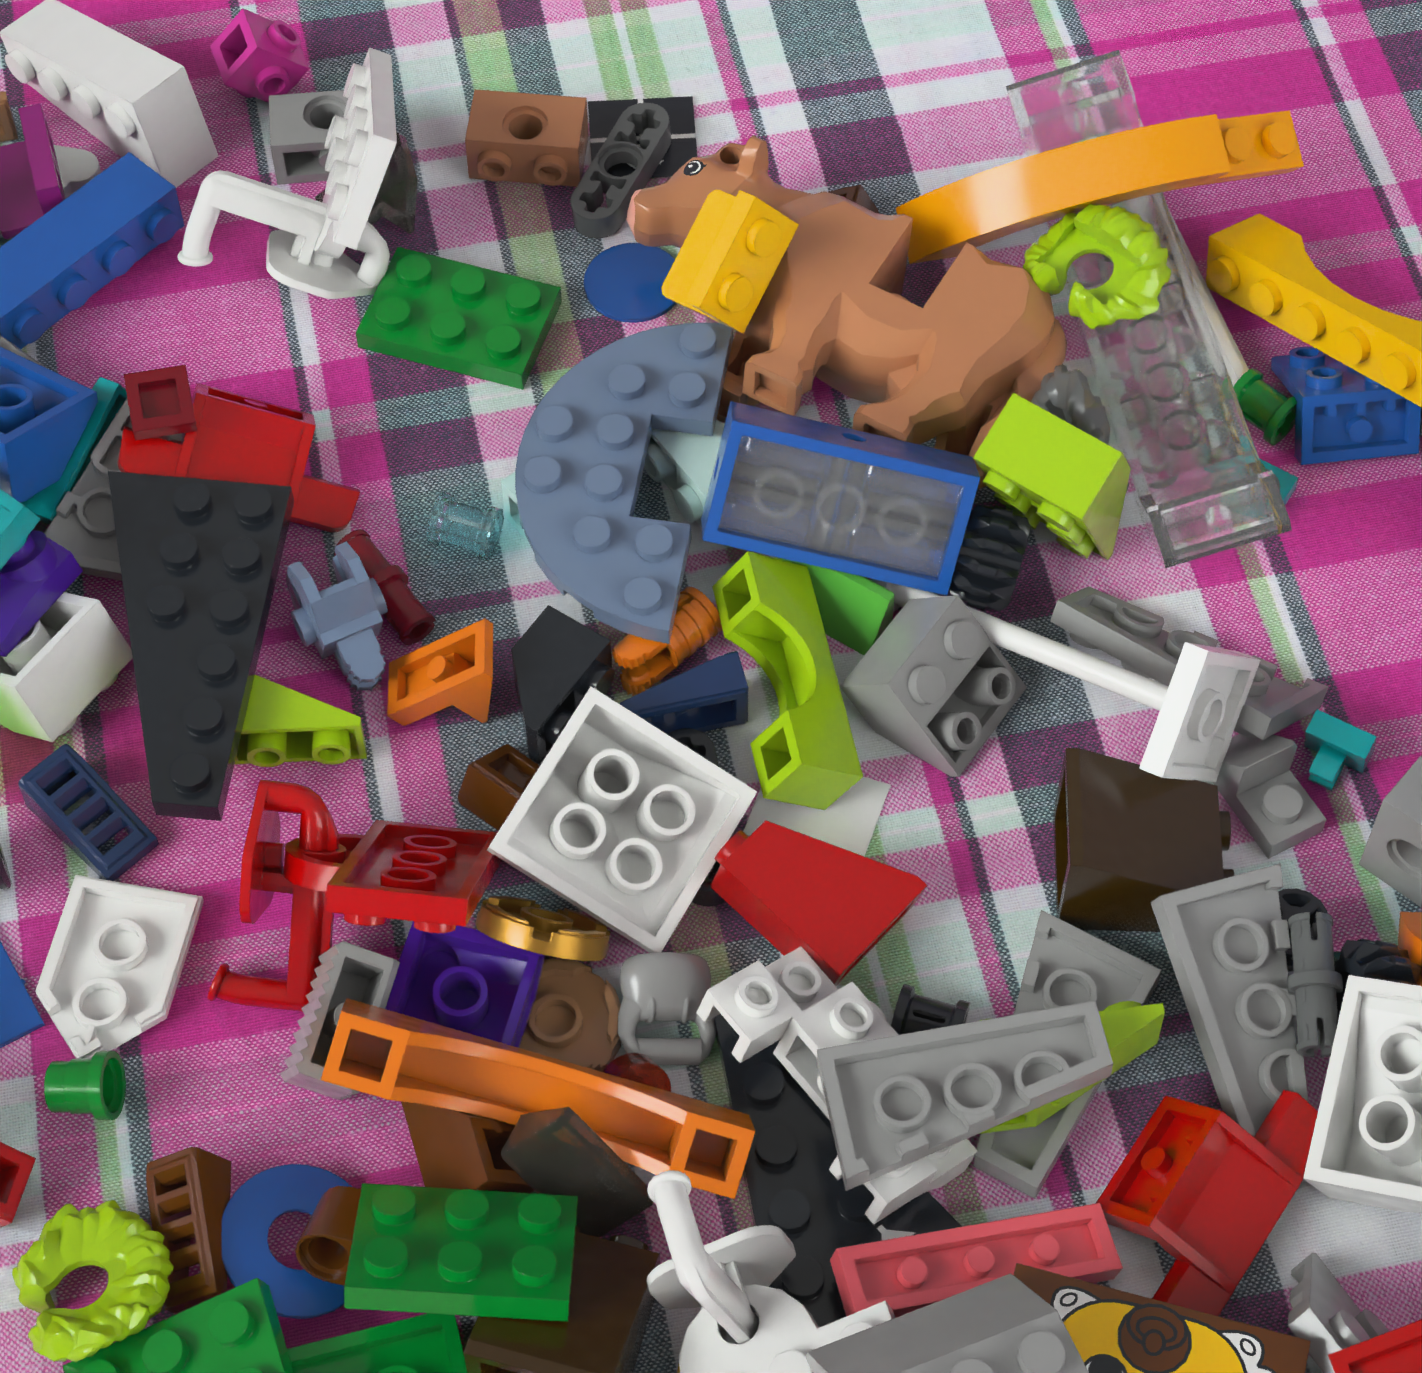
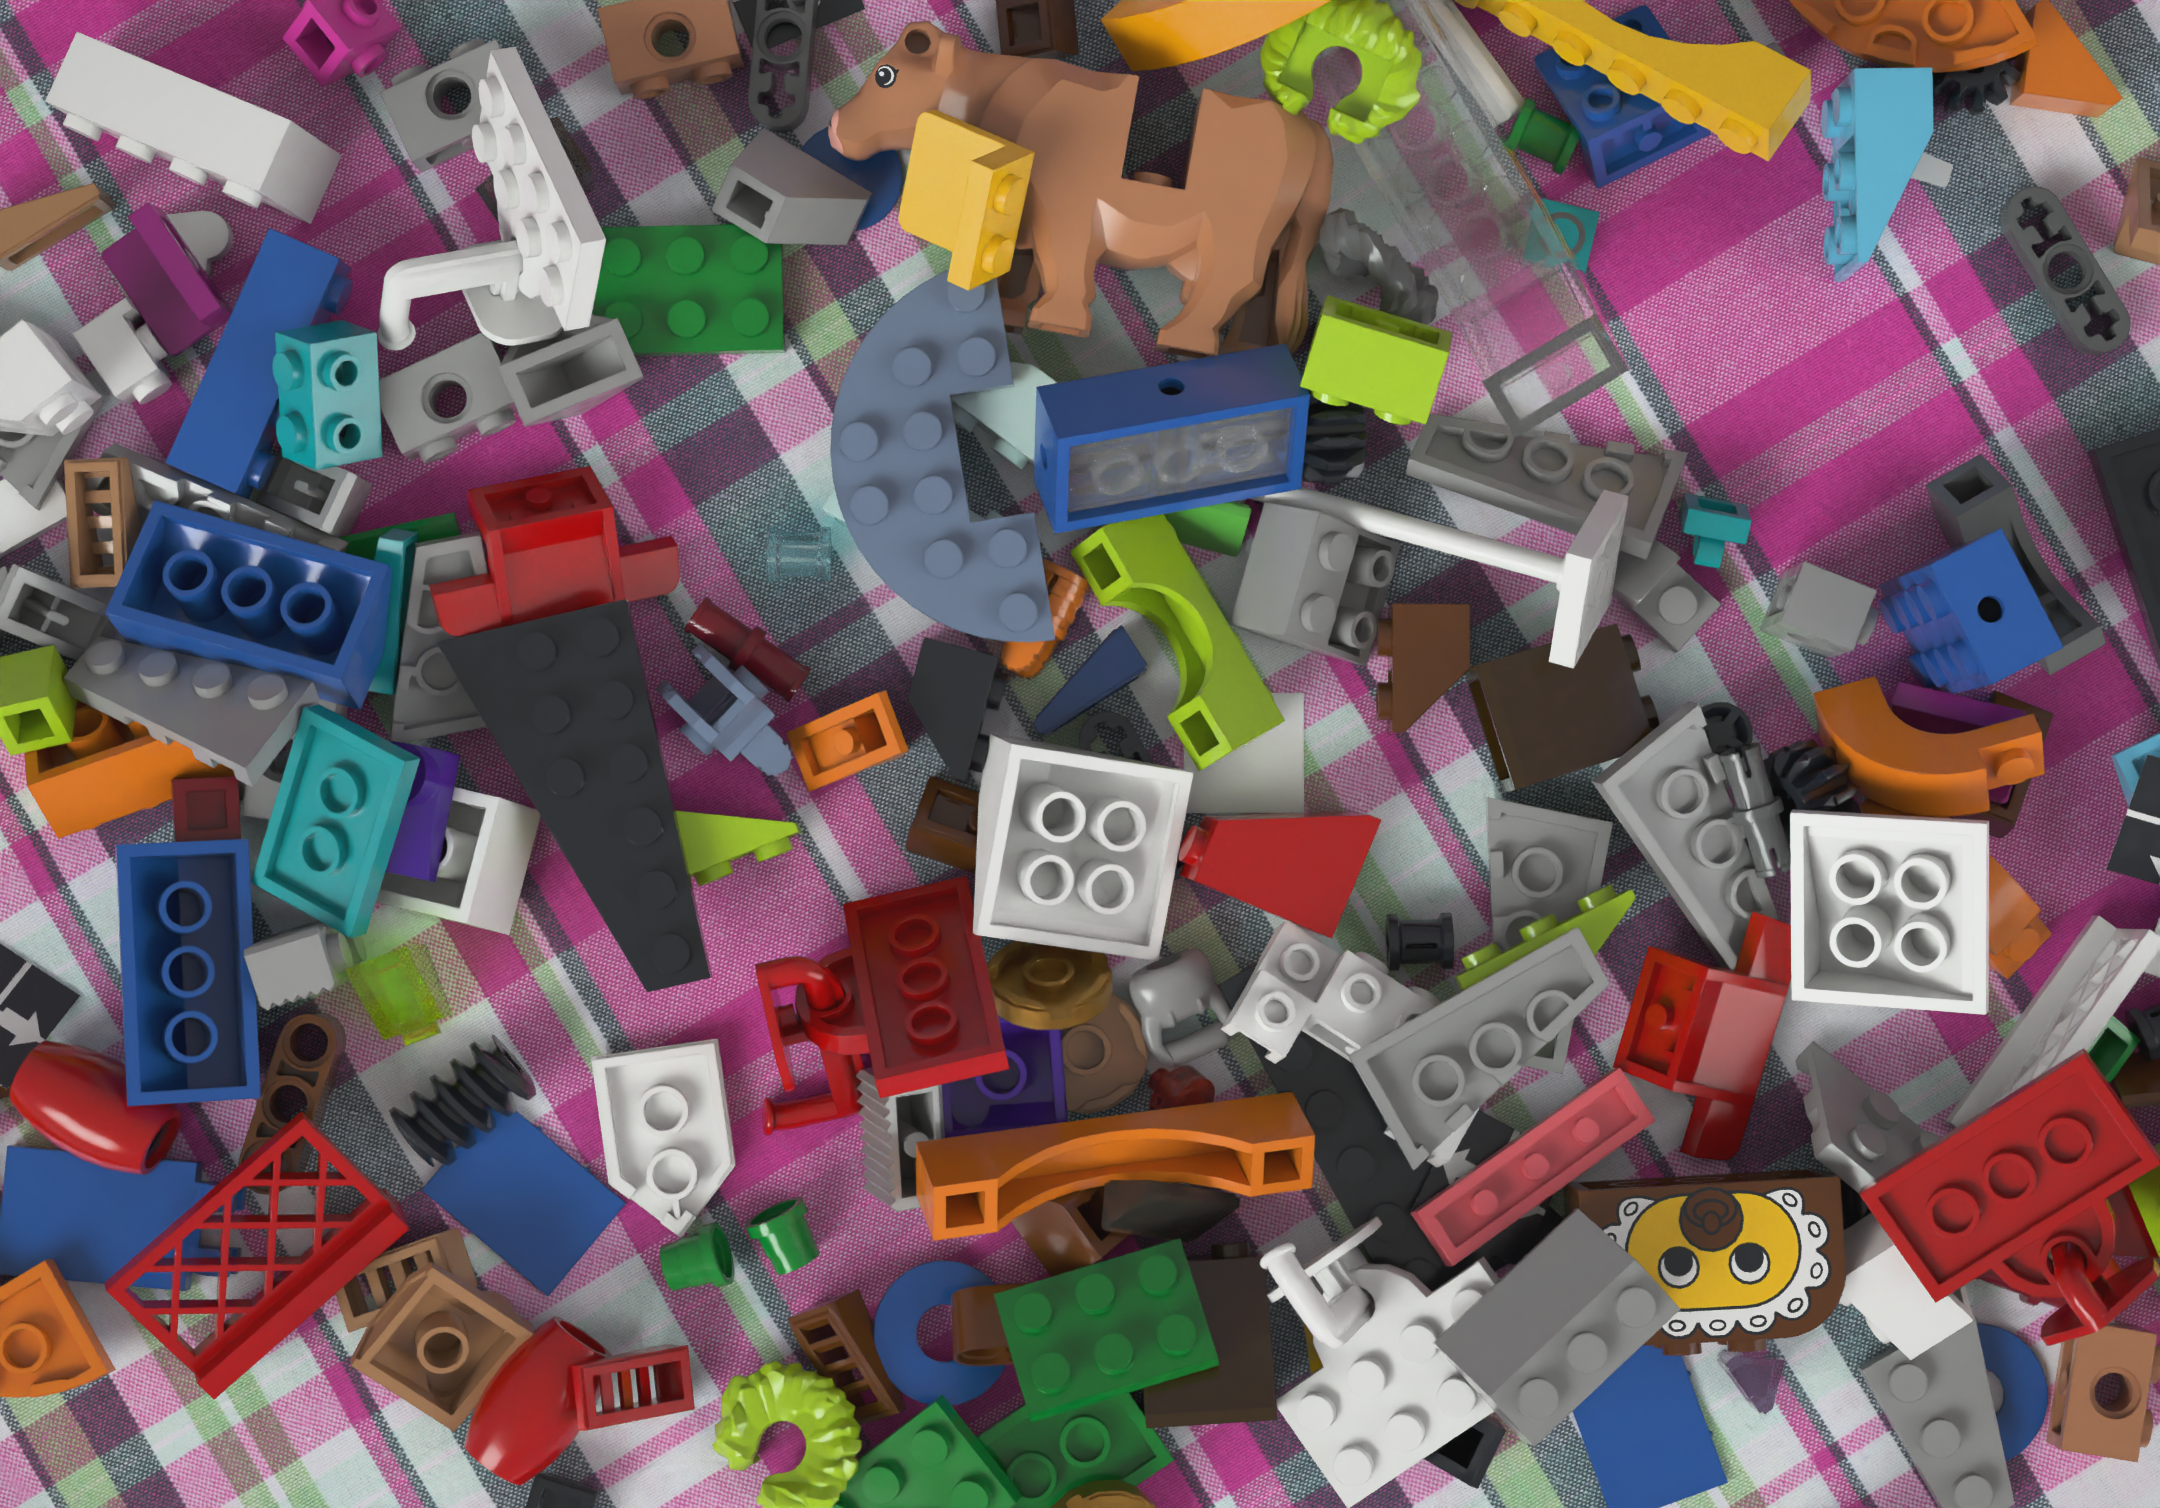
camera: 20 degrees left, 30 degrees up
(63, 781) = (522, 973): dark blue slope -> none
(79, 354) = (320, 498): none -> light grey slope
(113, 273) = (328, 394): none -> teal brick
(160, 402) = (462, 562): dark red tile -> none
(182, 1090) = (784, 1235): none -> green piece
(217, 324) = (411, 397): none -> light grey brick
(328, 330) = (569, 371): none -> light grey slope
(576, 261) = (789, 195): none -> light grey slope
(1016, 776) = (1425, 657): none -> reddish brown slope

